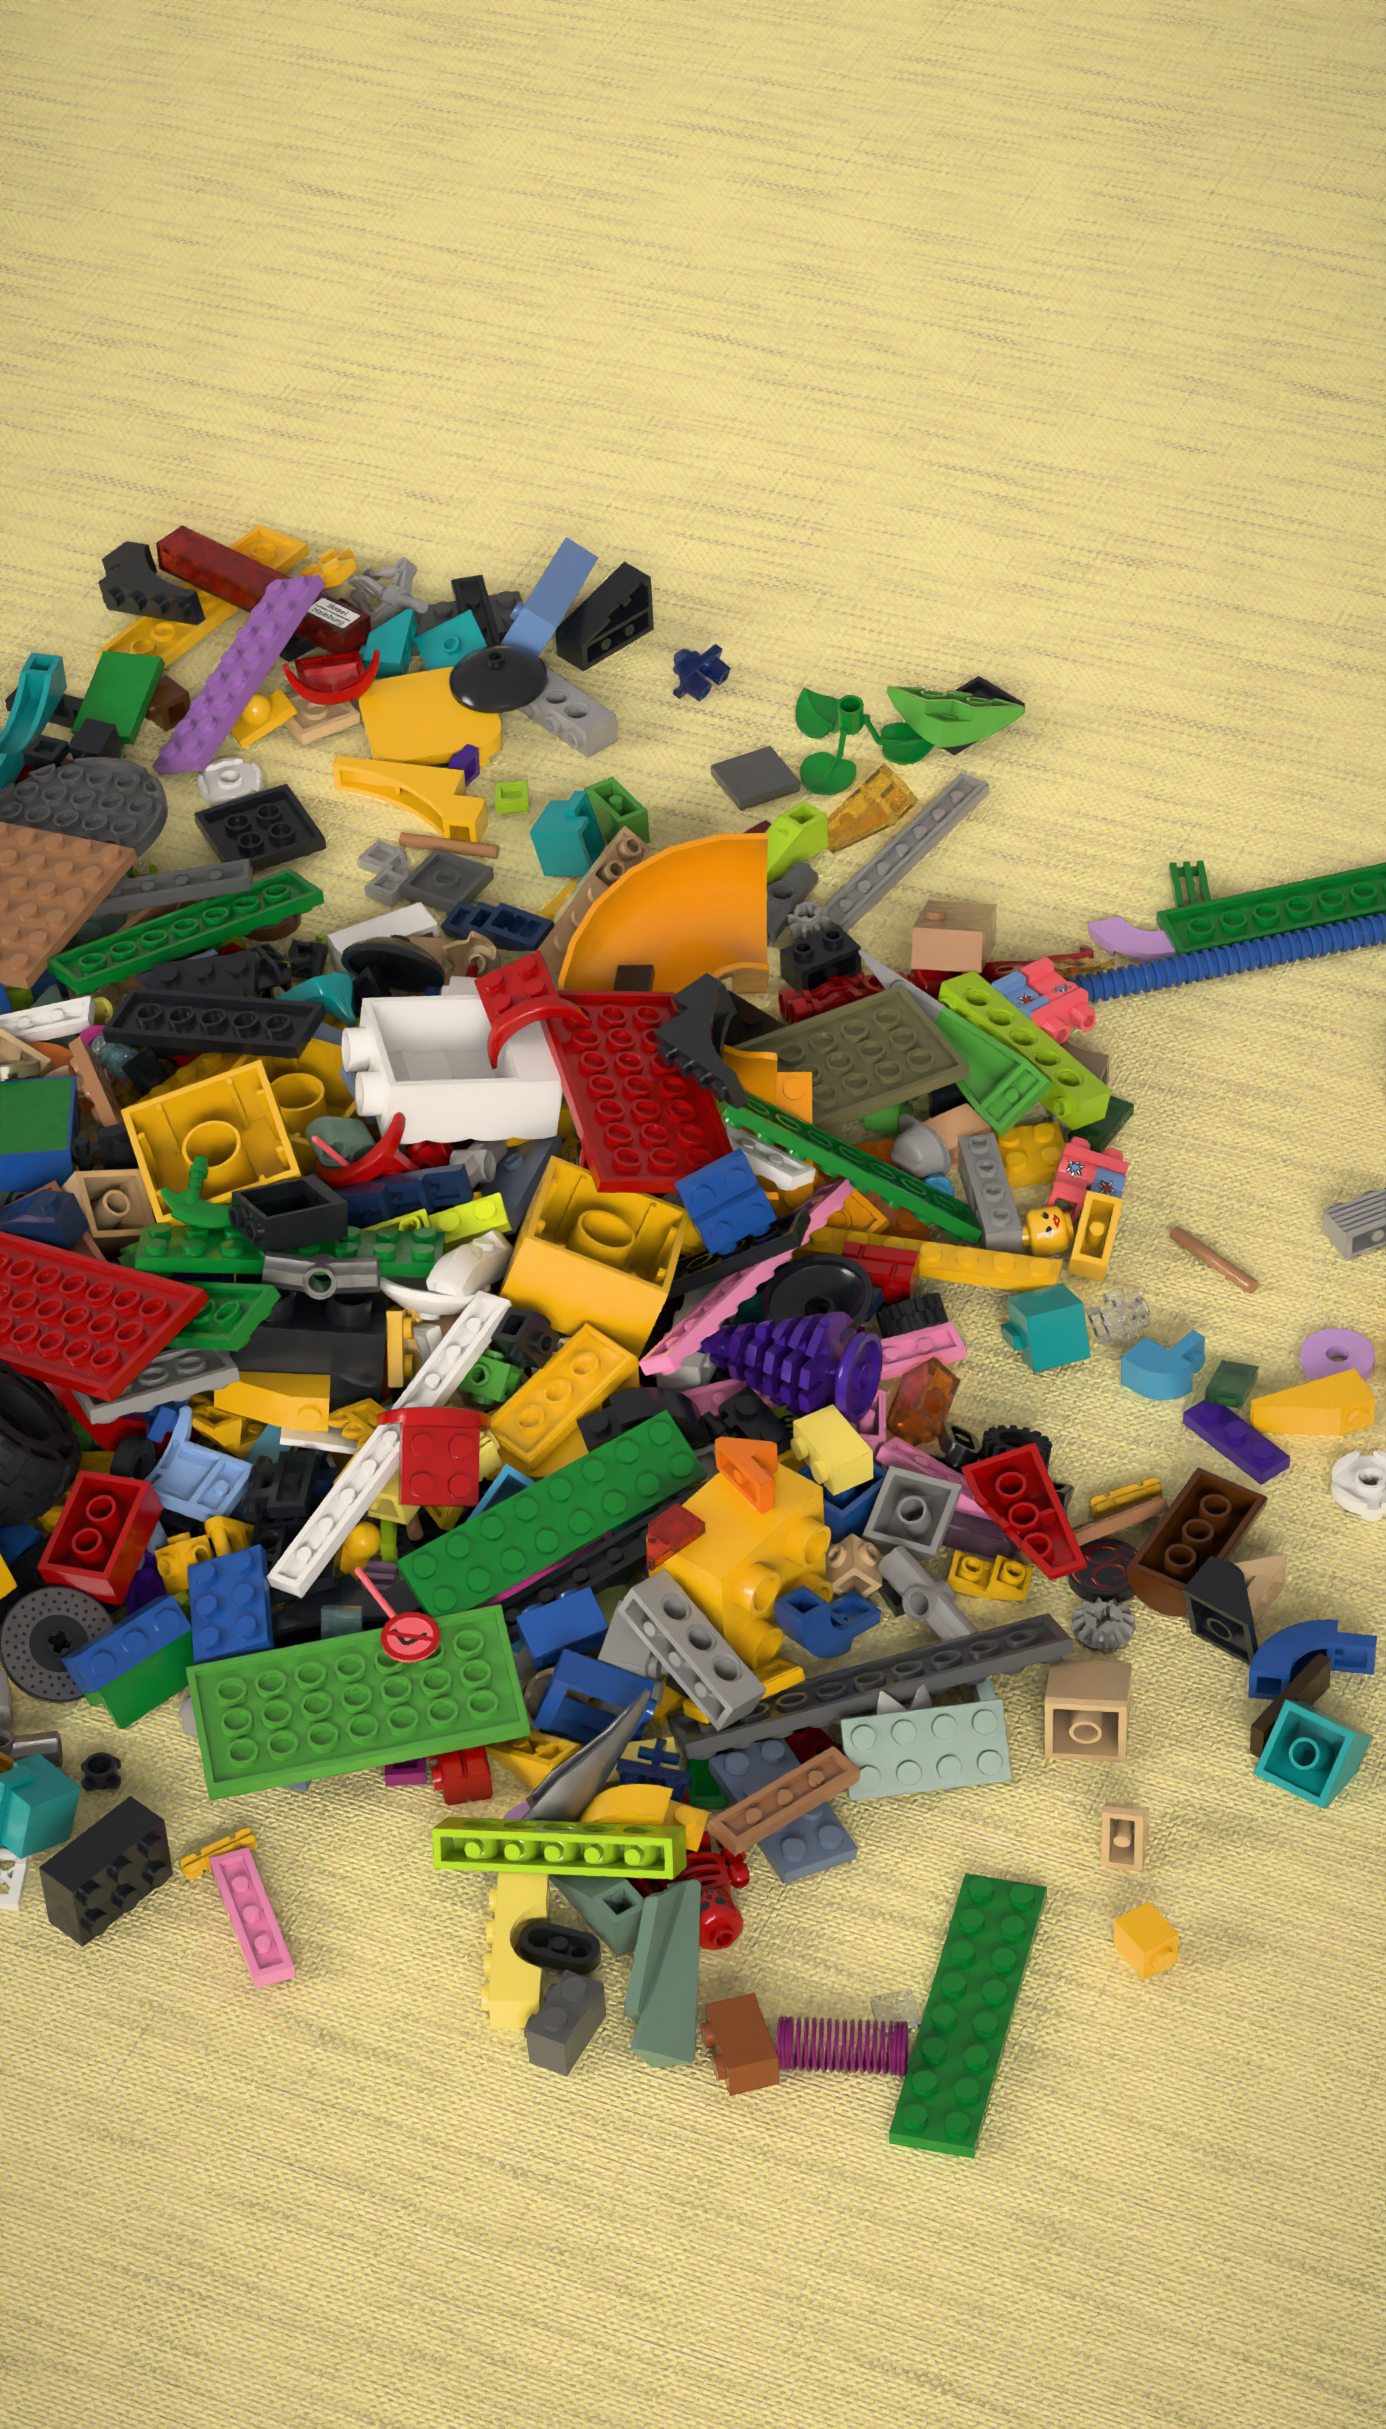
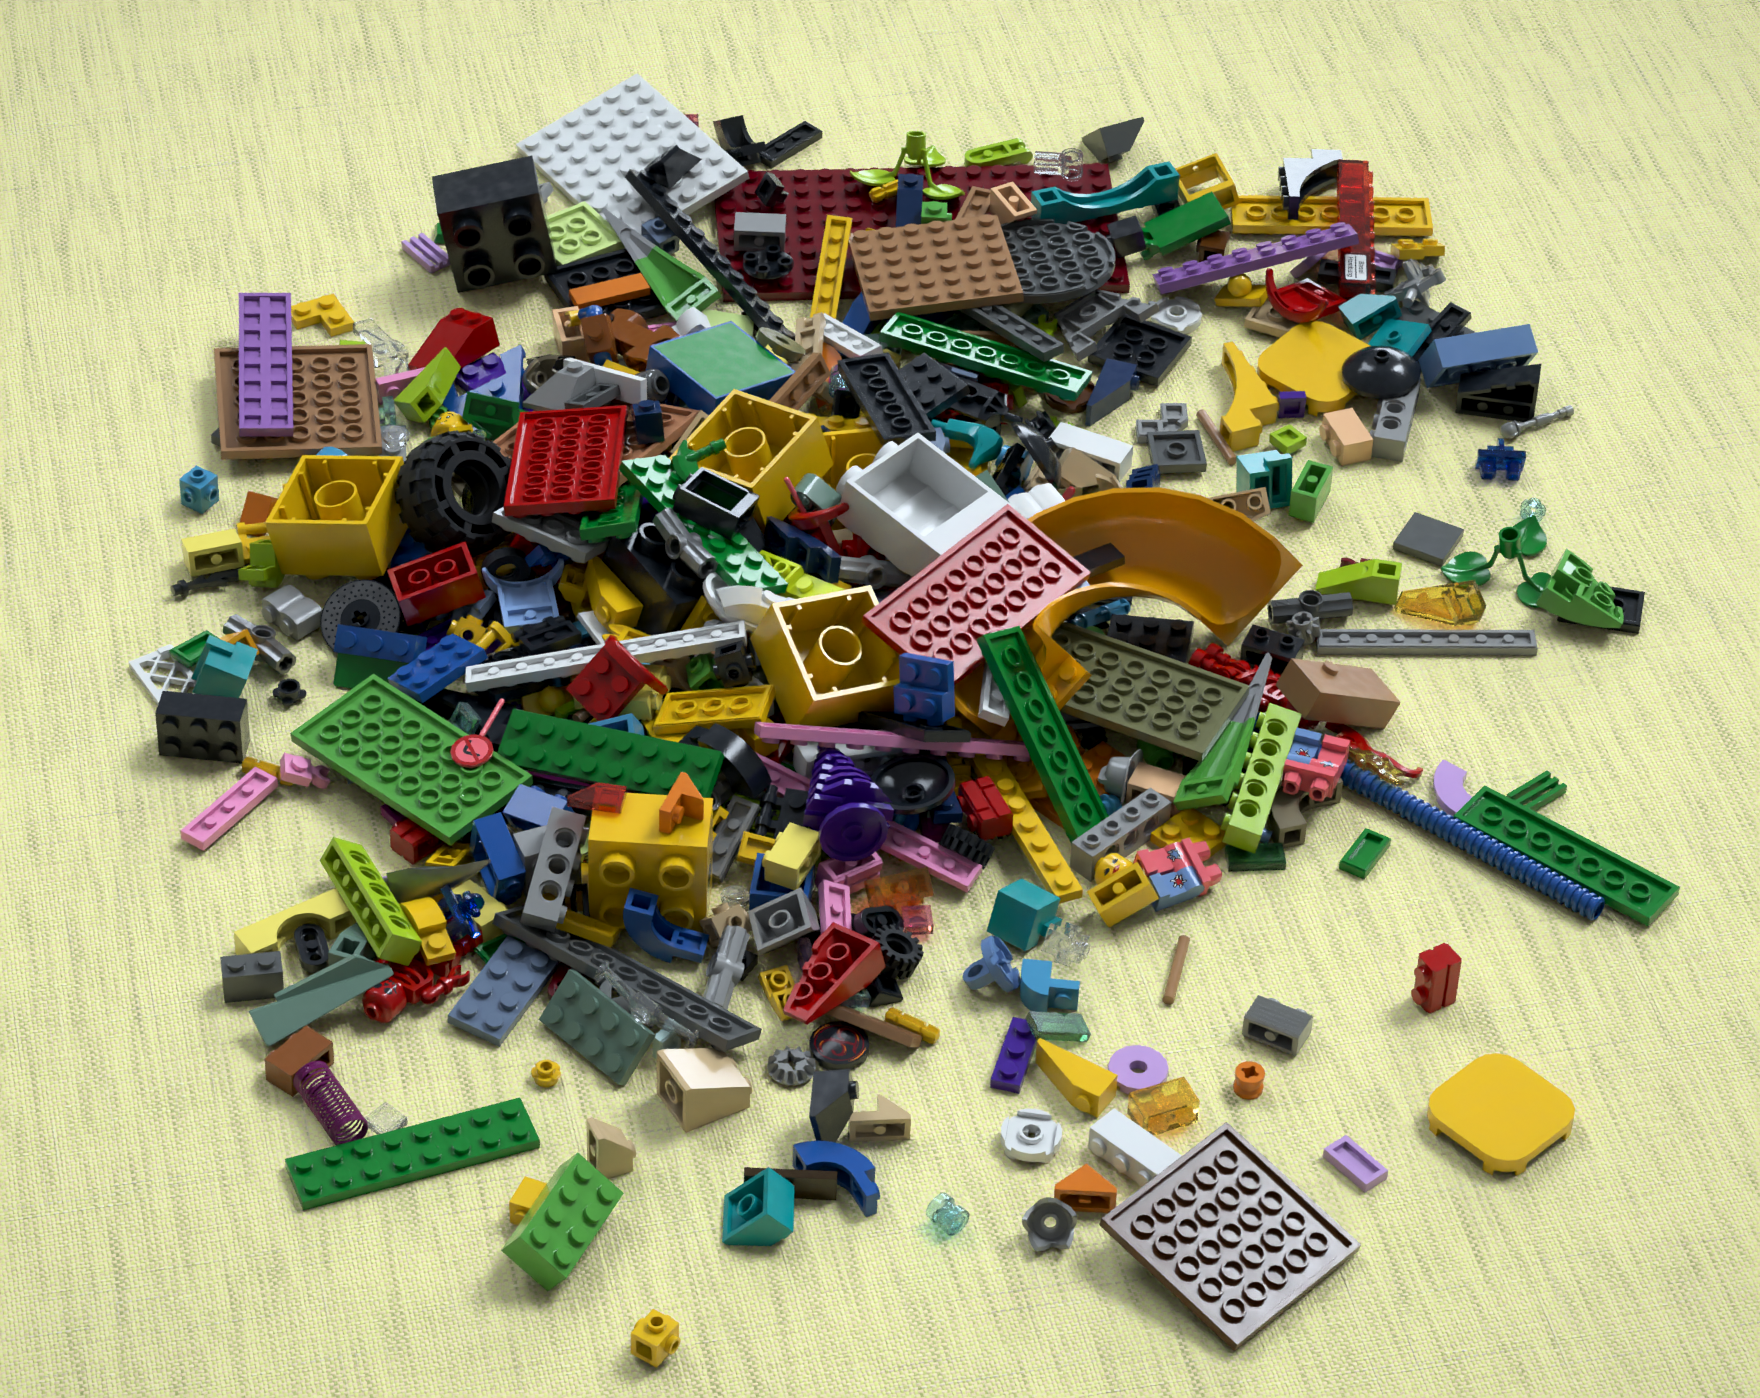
camera: 50 degrees right, 0 degrees up
(46, 751) = (1097, 219): black tile -> none
(75, 636) = (1208, 169): none -> yellow window
(183, 834) = (1093, 312): none -> light grey wing
(257, 1820) = (300, 772): none -> bright pink plate
(305, 863) = (1111, 390): none -> dark blue slope
(520, 996) = (988, 500): red piece -> none
(553, 754) = (1346, 436): none -> light nougat brick
(656, 642) = (1514, 428): none -> light grey piece
(697, 1037) = (1029, 594): black arch -> none
(784, 1800) = (493, 980): medium nougat plate -> none
(792, 694) = (1535, 503): none -> clear light blue plate
(941, 1834) = (546, 1073): none -> yellow plate
(965, 1682) = (645, 1009): none -> clear plate
(974, 1415) = (917, 919): none -> clear pink plate
(1106, 1384) = (993, 967): none -> medium blue tile
(1166, 1045) = (1364, 853): none -> green tile
(1202, 1522) = (897, 1067): reddish brown brick -> none
(1215, 1918) = (562, 1222): none -> bright green brick

